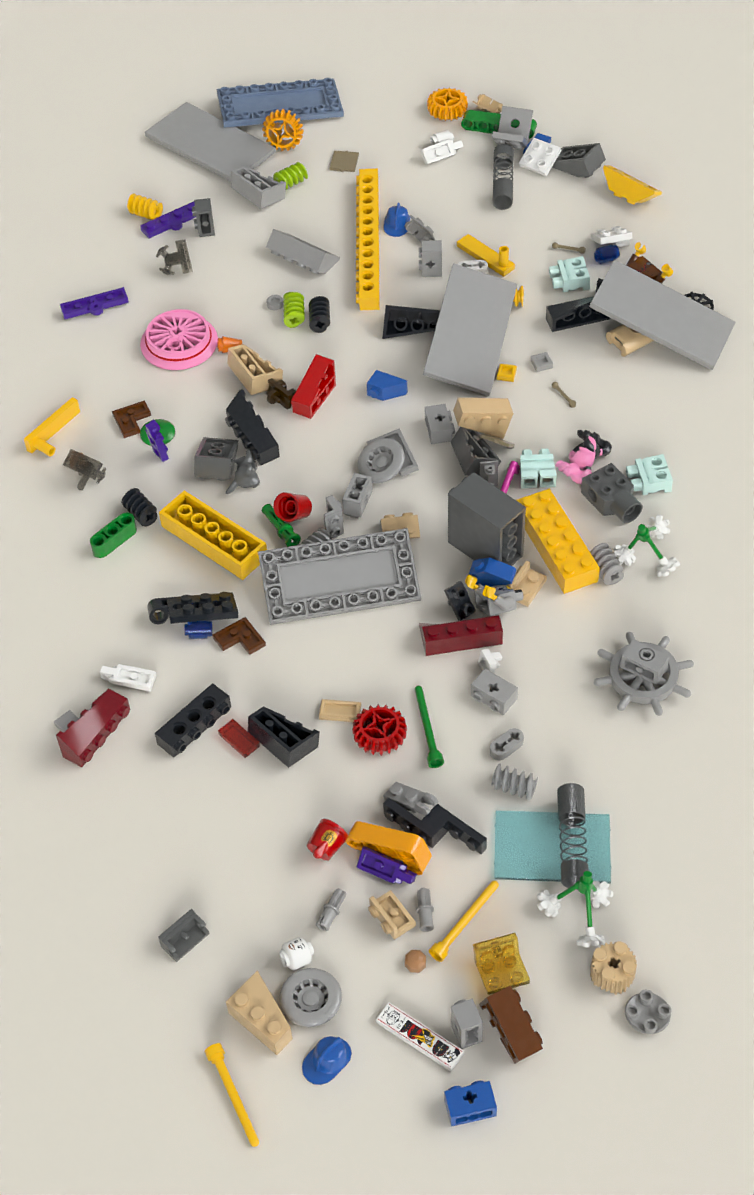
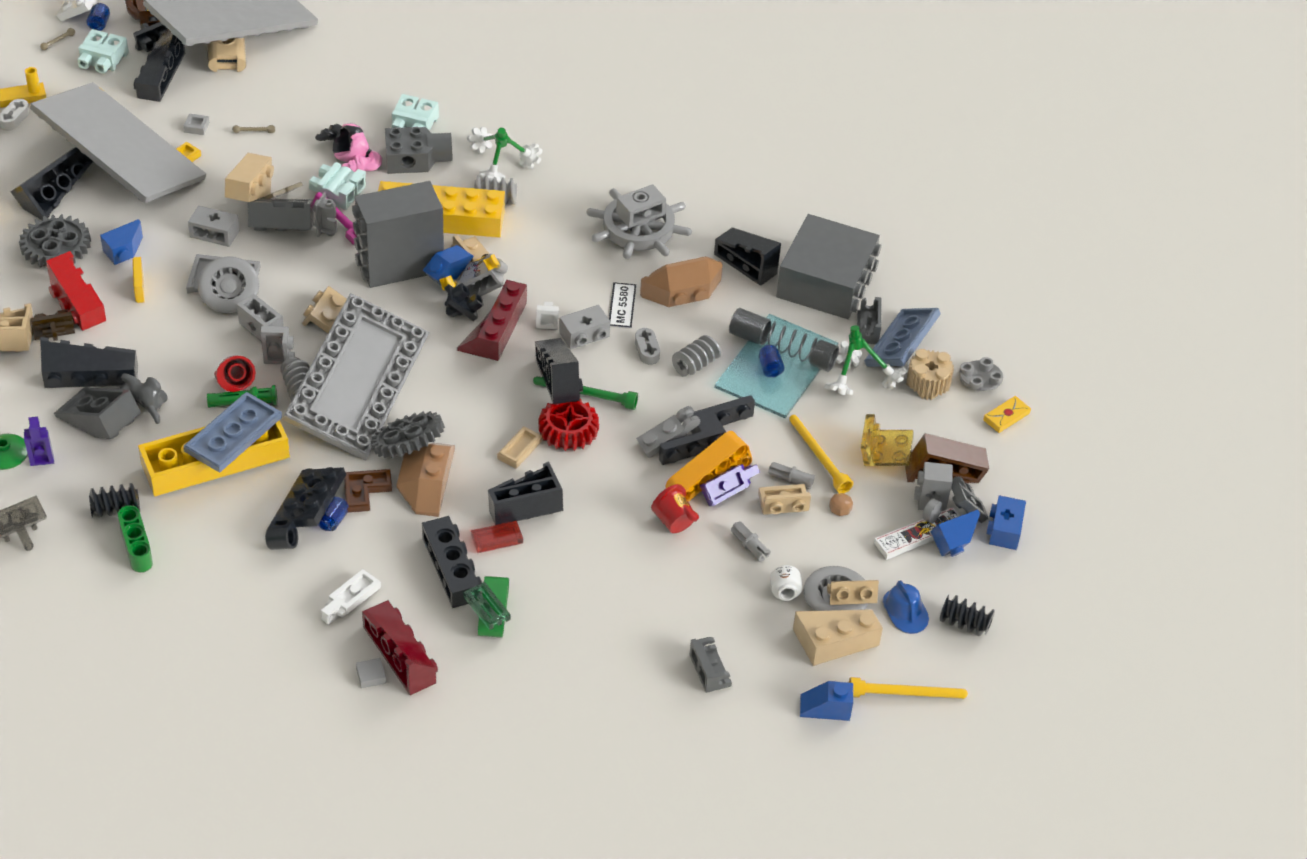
camera: 70 degrees left, 5 degrees down
(153, 765) = (496, 619): none -> clear green tile
(165, 767) = (500, 588): none -> green beam
(187, 1039) = (828, 701): none -> blue slope
(225, 532) = (232, 432): none -> sand blue tile
(272, 666) = (425, 477): none -> medium nougat wedge
(295, 633) = (407, 434): none -> dark grey gear
(302, 999) = (853, 592): none -> tan hinge
(335, 1109) = (966, 615): none -> black piece
(354, 413) = (138, 279): none -> yellow tile
(360, 353) = (53, 238): none -> dark grey gear
(421, 692) = (559, 370): none -> black wedge
(425, 1063) = (955, 533): none -> blue slope
(439, 1033) = (932, 510): none -> light grey tile
(468, 1059) = (966, 499): none -> dark grey hinge
(542, 837) = (771, 361): none -> clear blue brick
(546, 707) = (622, 304): none -> sticker
(594, 738) = (682, 282): none -> medium nougat wedge
(614, 1054) = (1007, 414): none -> yellow tile
(646, 927) = (903, 336): none -> sand blue tile
(651, 895) = (870, 320): none -> dark grey hinge
(663, 767) = (749, 254): none -> black wedge
(688, 831) = (828, 266): none -> dark grey brick

